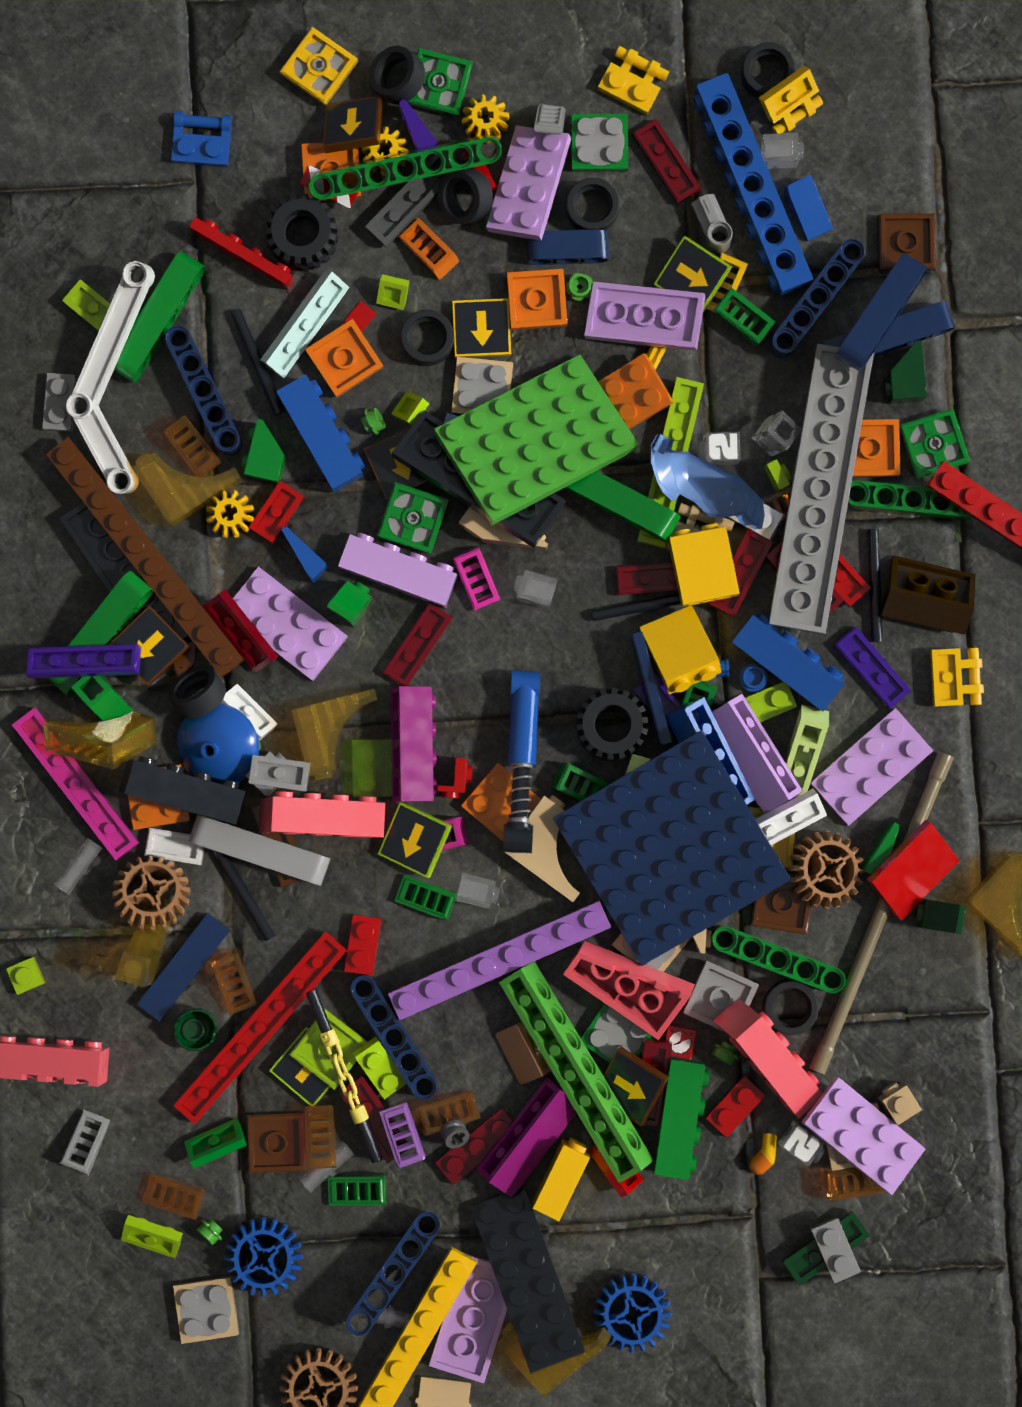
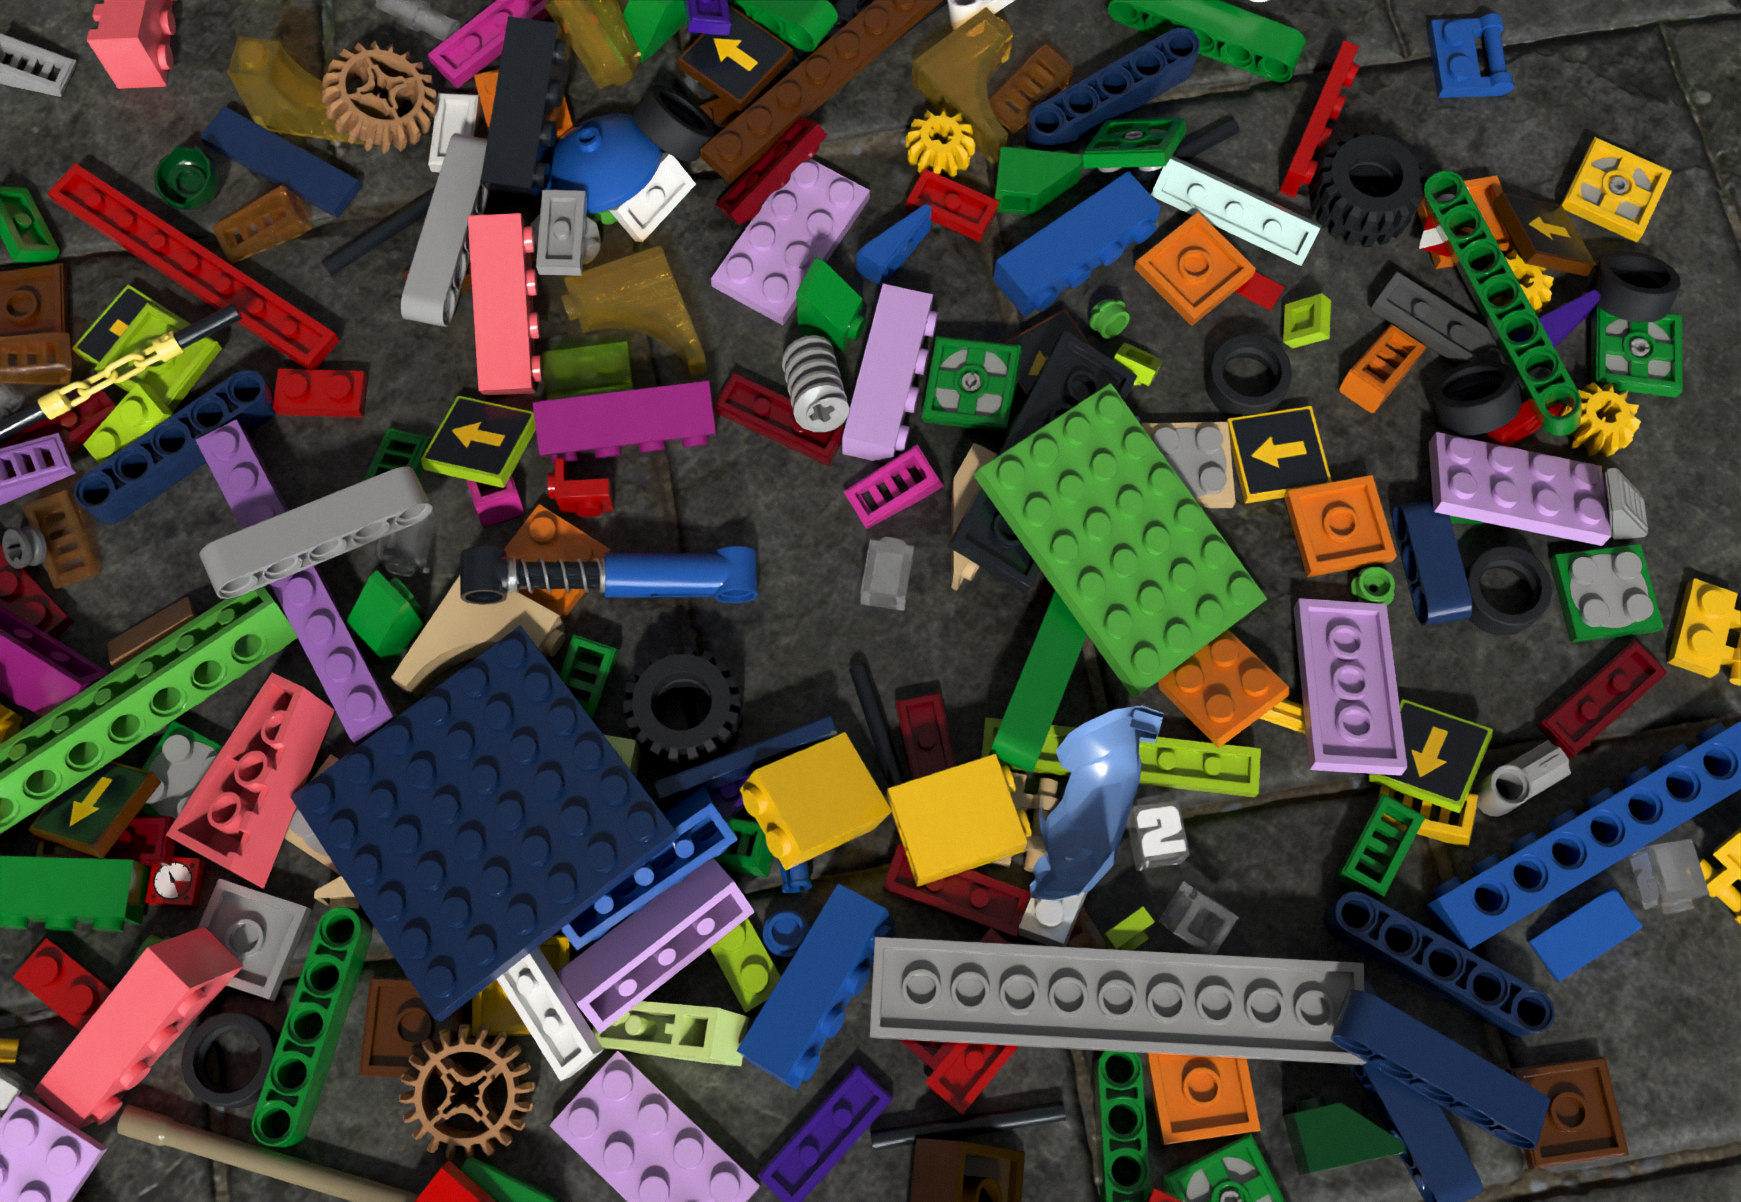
camera: 85 degrees right, 15 degrees down
(252, 383) = (1134, 144): none -> green piece
(404, 620) = (815, 384): none -> light grey piece
(479, 940) = (315, 532): none -> light grey beam
(532, 904) = (386, 617): none -> green slope

